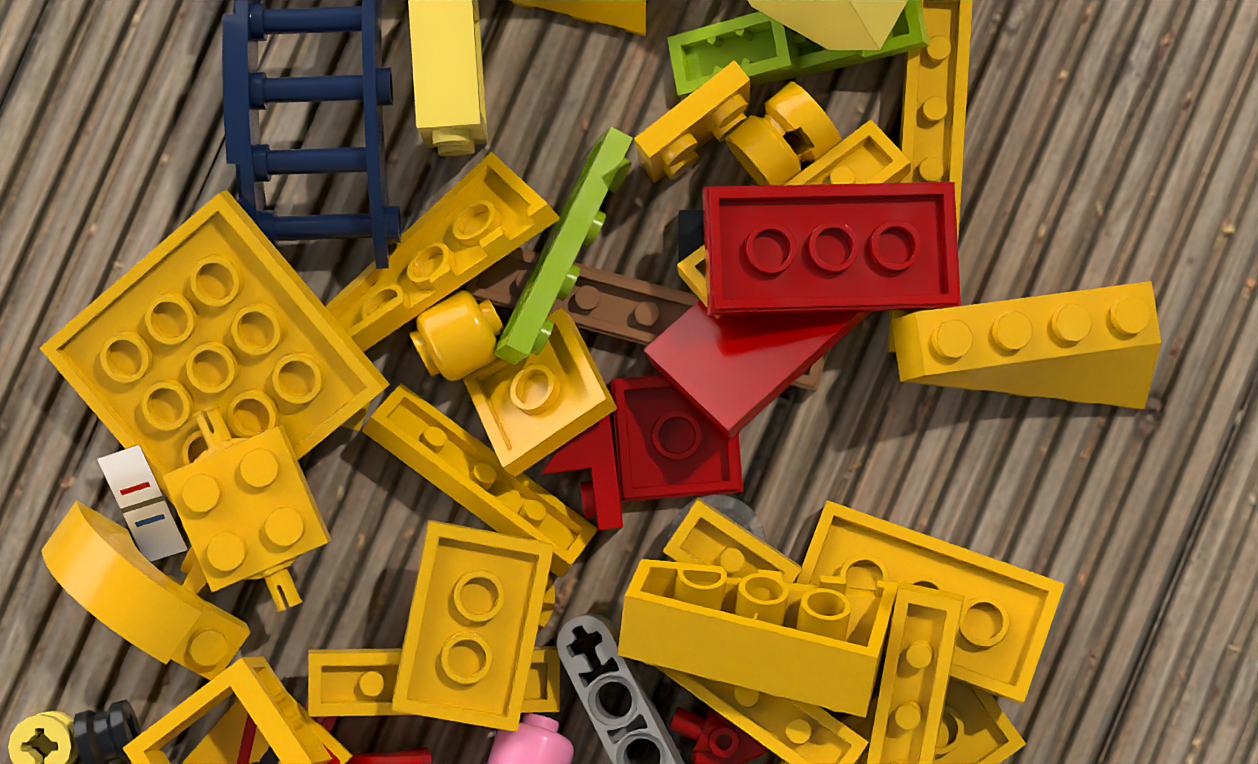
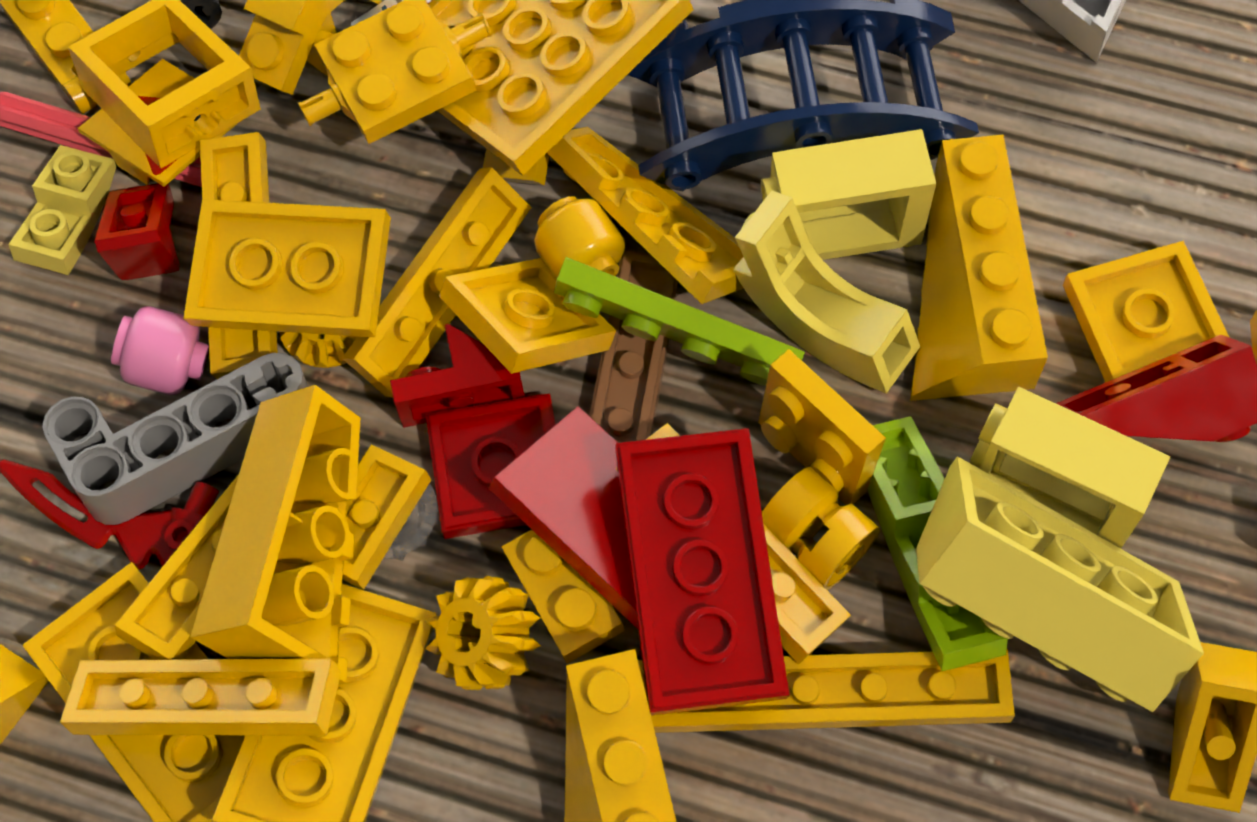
camera: 90 degrees right, 20 degrees down
(558, 102) = (815, 305): none -> light yellow arch
(835, 378) = (565, 601): none -> yellow plate
(856, 456) = (482, 633): none -> yellow gear

